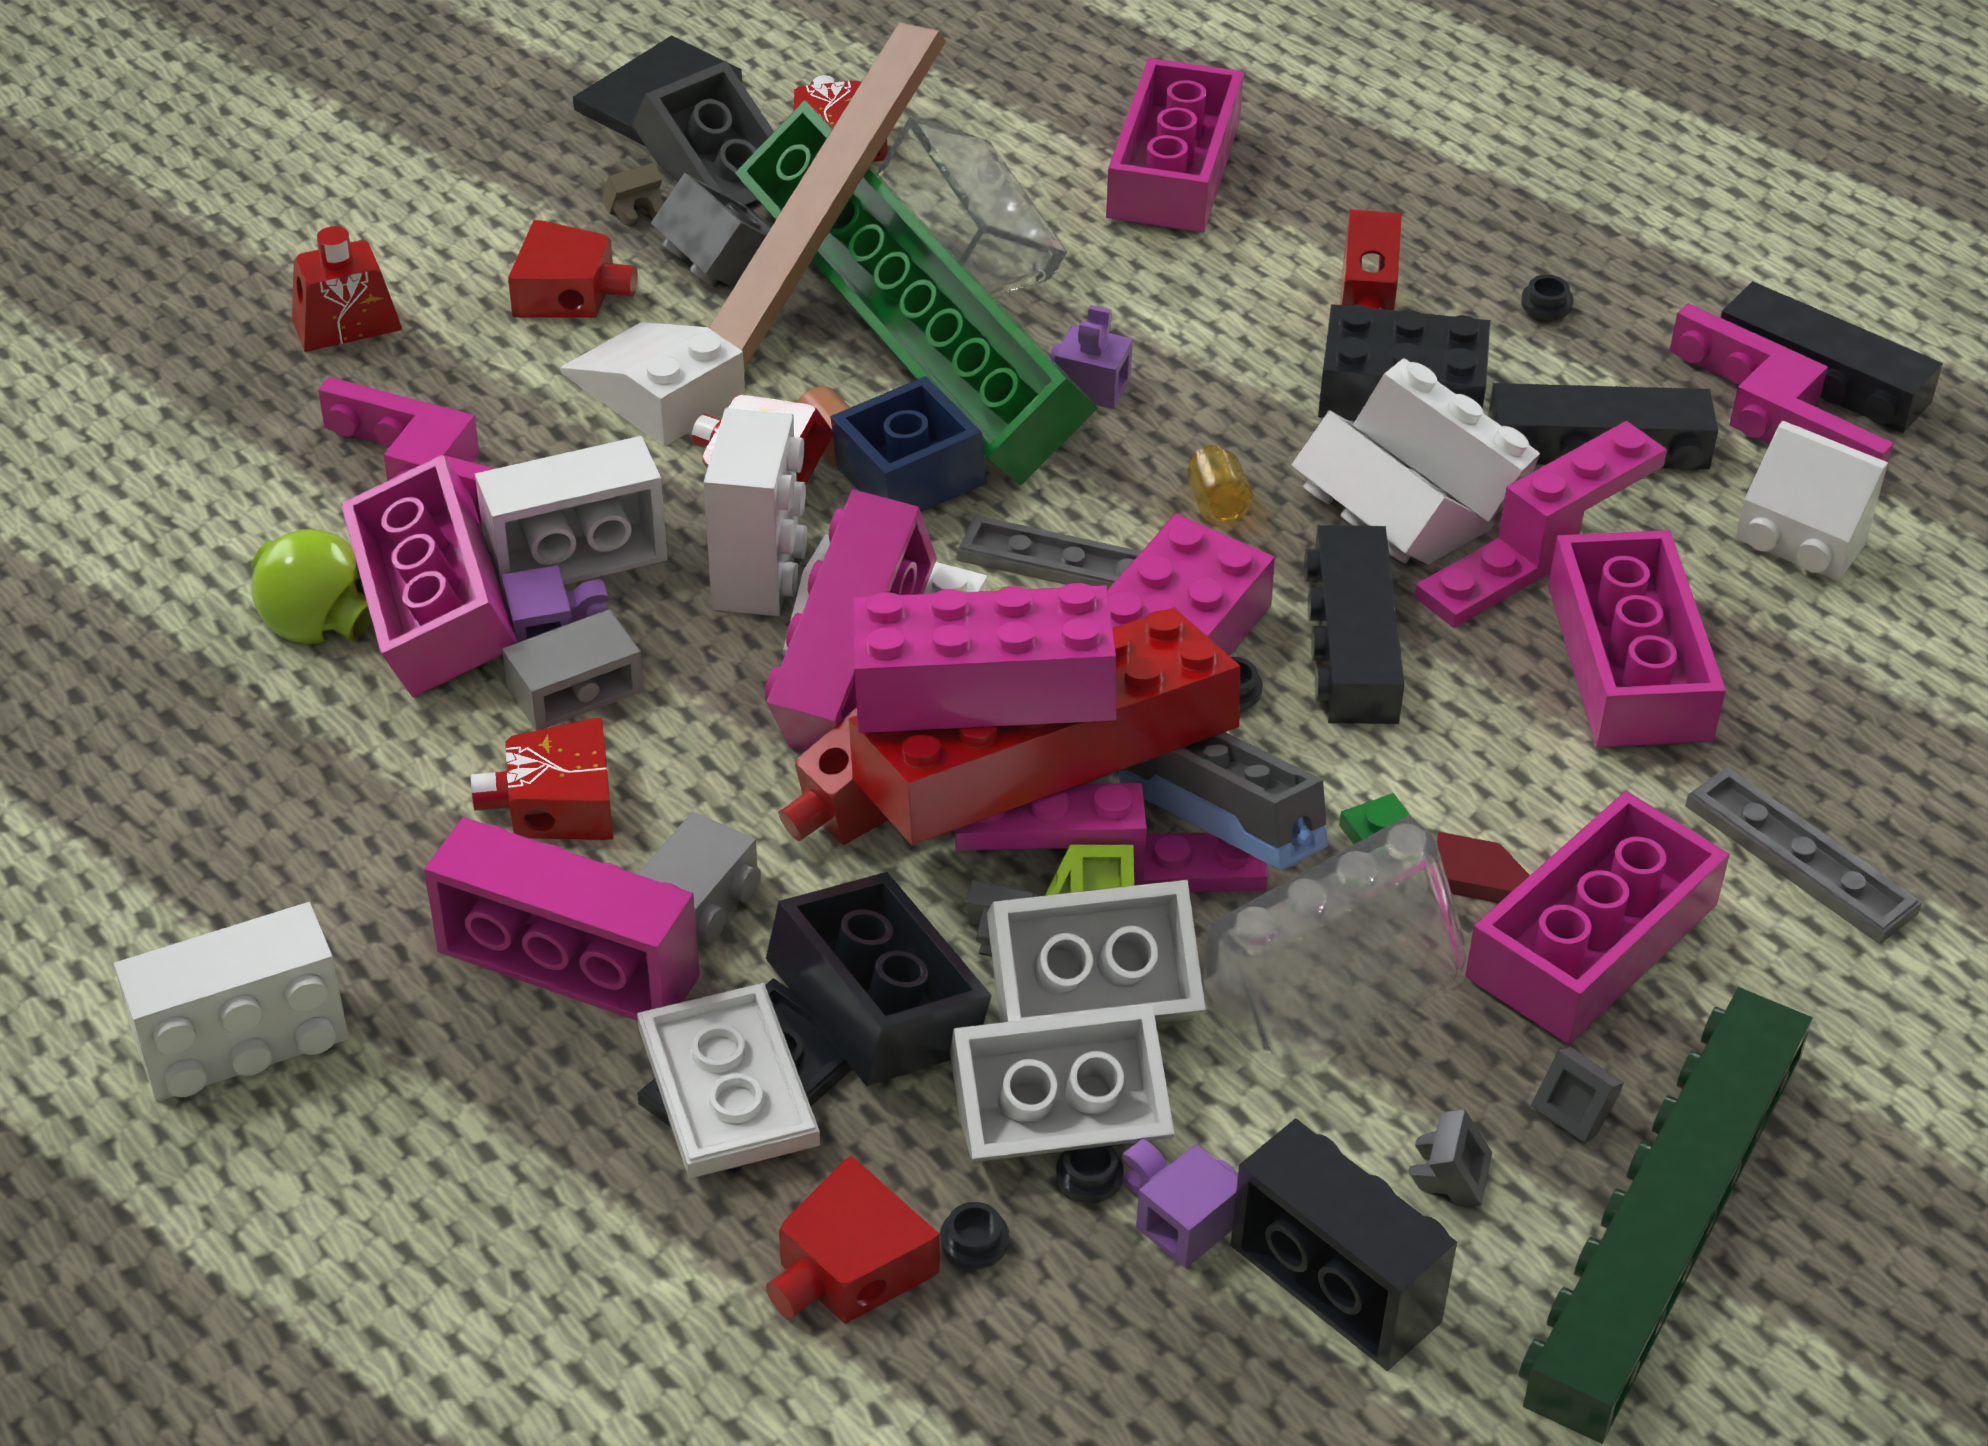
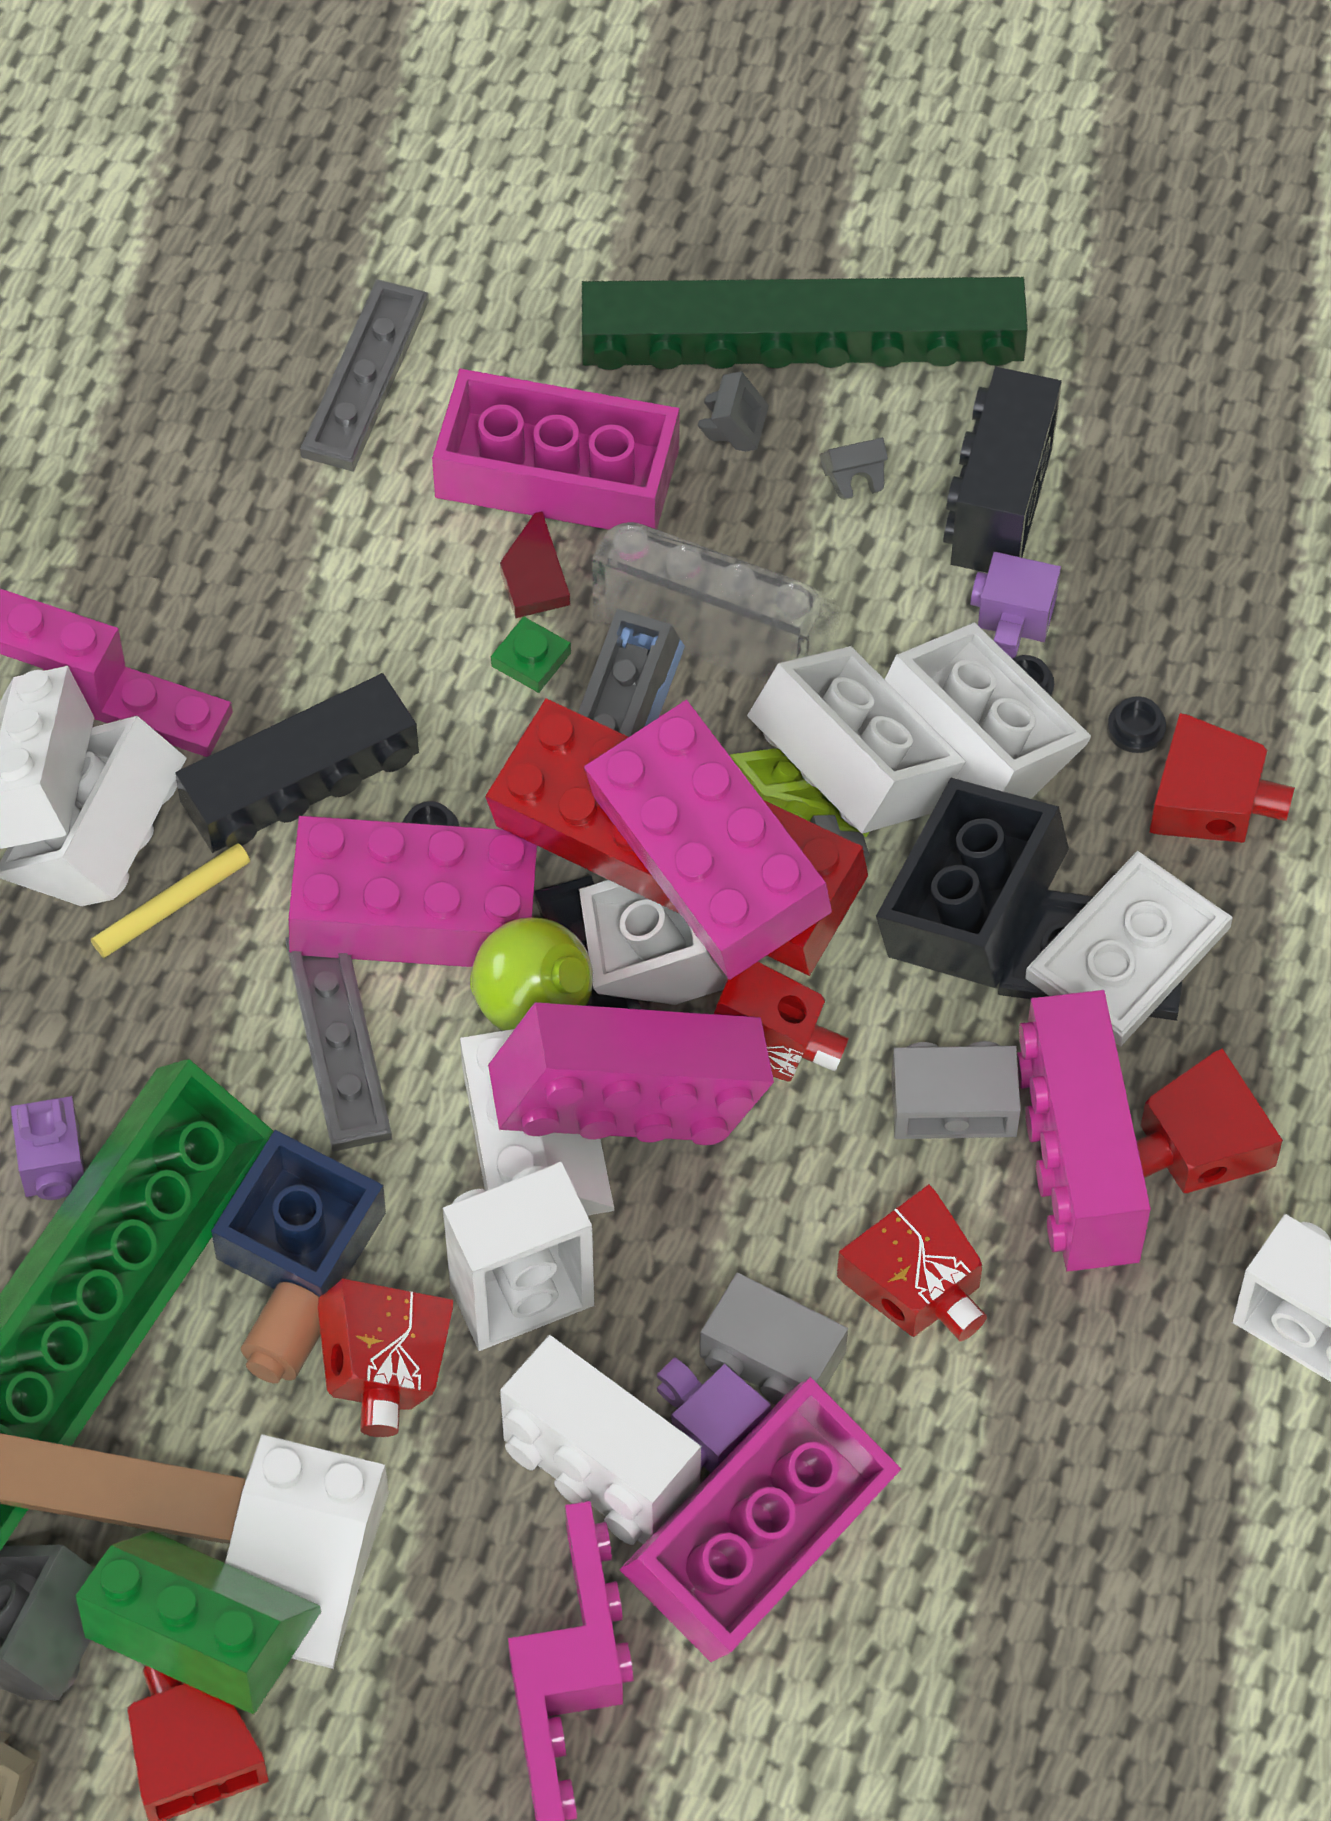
camera: 120 degrees left, 15 degrees up
(309, 586) = (831, 1633): lime brick -> none
(500, 1039) = (1207, 1128): none -> red torso
(635, 269) = (194, 1618): none -> green slope
(1219, 484) = (165, 957): clear yellow brick -> none
(1279, 519) = (170, 900): none -> light yellow bar
(1635, 639) = (199, 545): dark pink brick -> none

